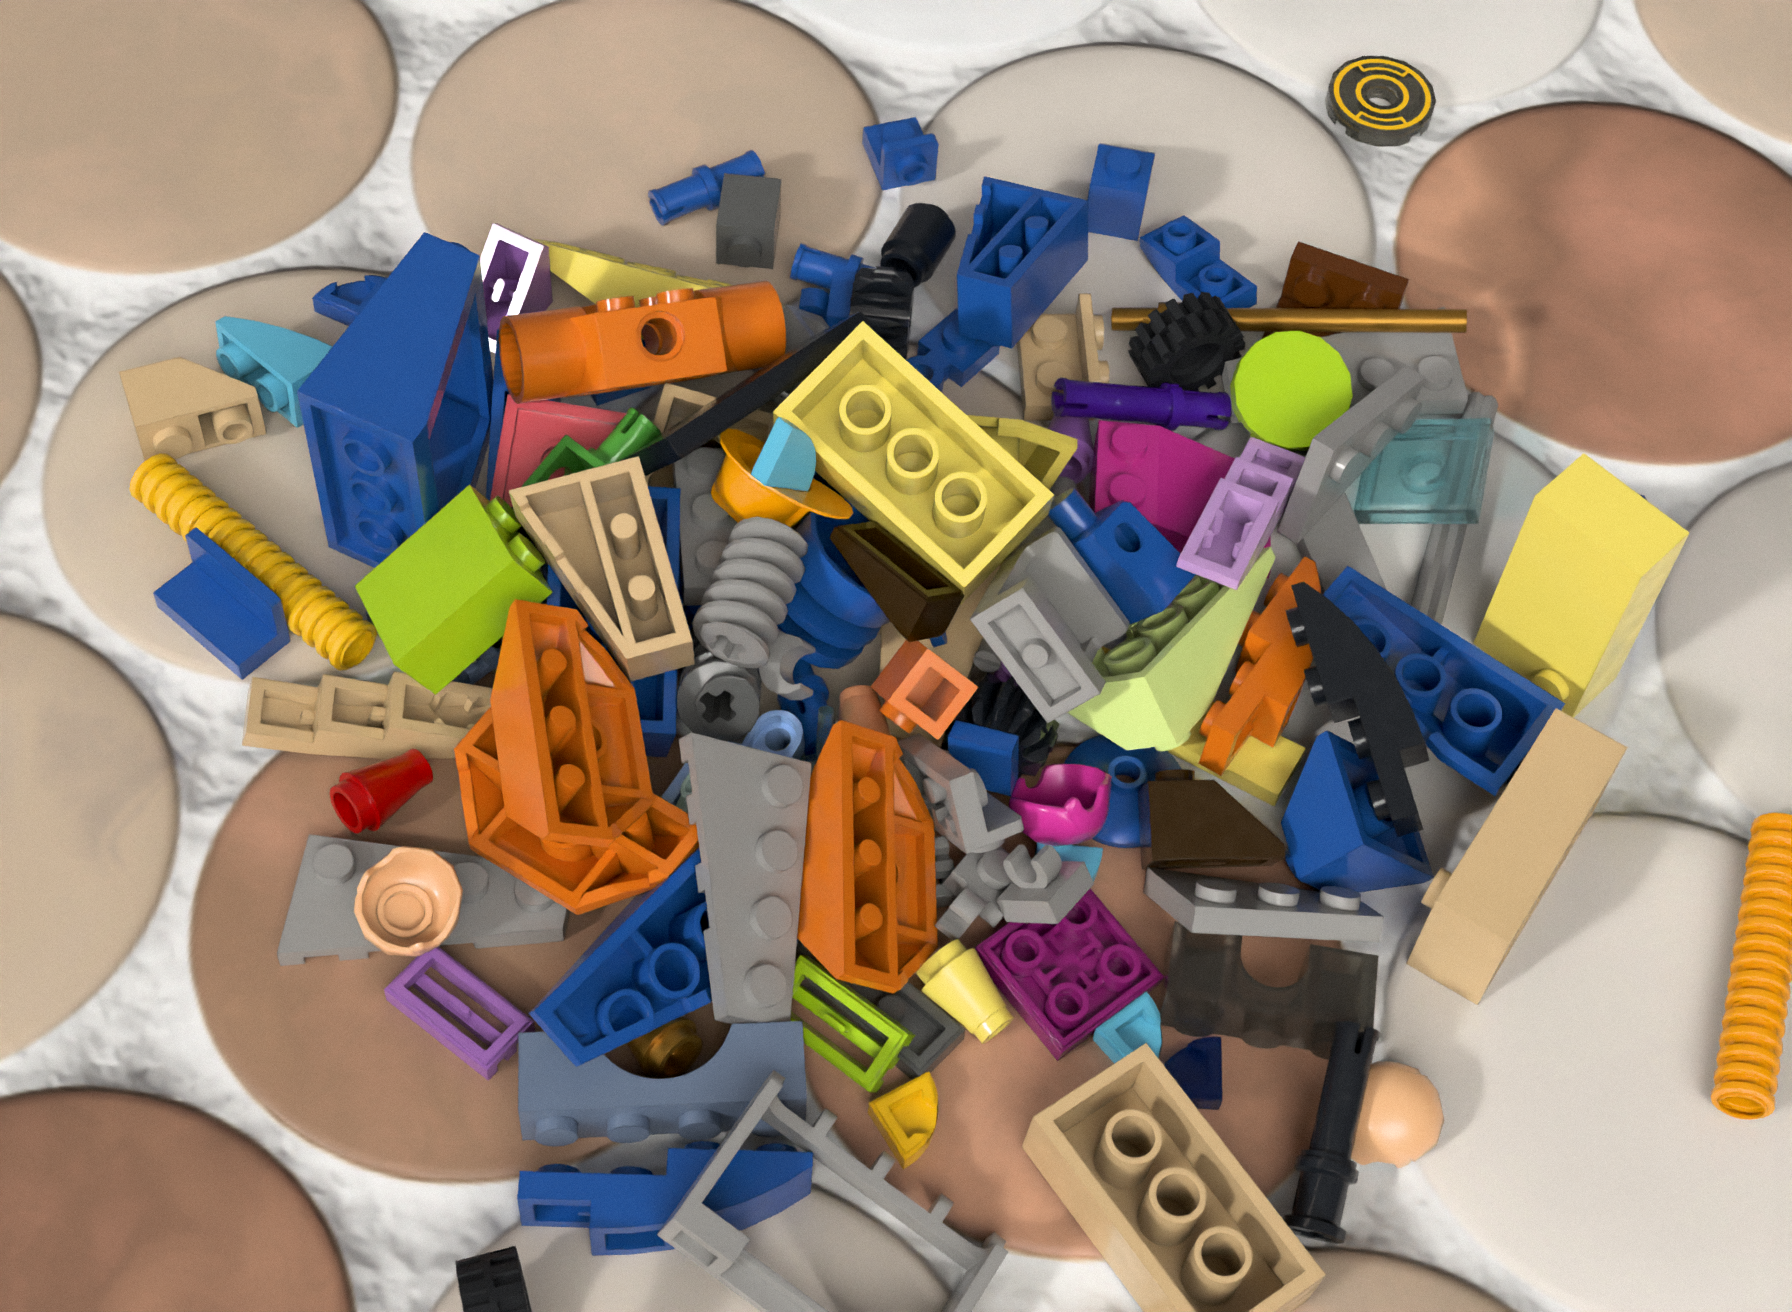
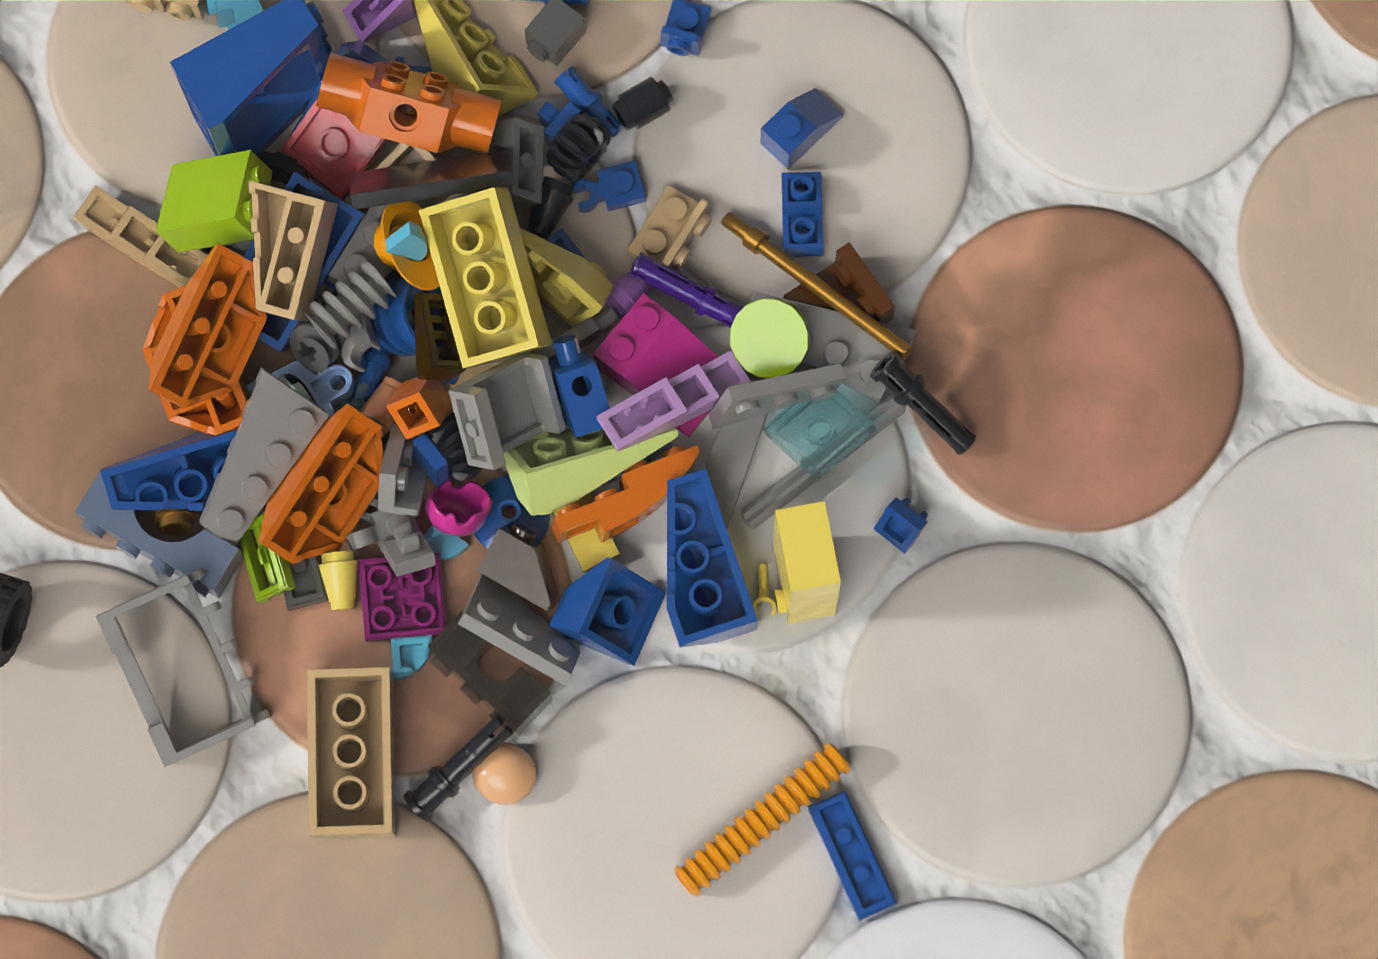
camera: 40 degrees right, 20 degrees up
(224, 607) = (109, 129): blue panel -> none
(308, 606) = (139, 102): yellow piece -> none
(375, 792) = (124, 287): red cone -> none
(408, 901) = (89, 368): light nougat hair -> none
(493, 909) = (97, 353): light grey wing -> none
(499, 1044) = (81, 401): medium lavender tile -> none
(625, 438) = (341, 161): bright green bracket -> none
(632, 1204) = (104, 591): blue slope -> none
(907, 1118) = (269, 626): yellow tile -> none
(1017, 259) = (678, 156): blue wedge -> none
(1186, 343) = (738, 269): black tyre -> none
(1199, 1072) = (423, 692): clear blue tile -> none
(1359, 683) = (648, 540): black slope -> none
(1384, 78) = (1022, 133): clear smoke tile -> none
(1504, 364) = (911, 391): none -> black pin
(1514, 856) = (667, 684): tan brick -> none

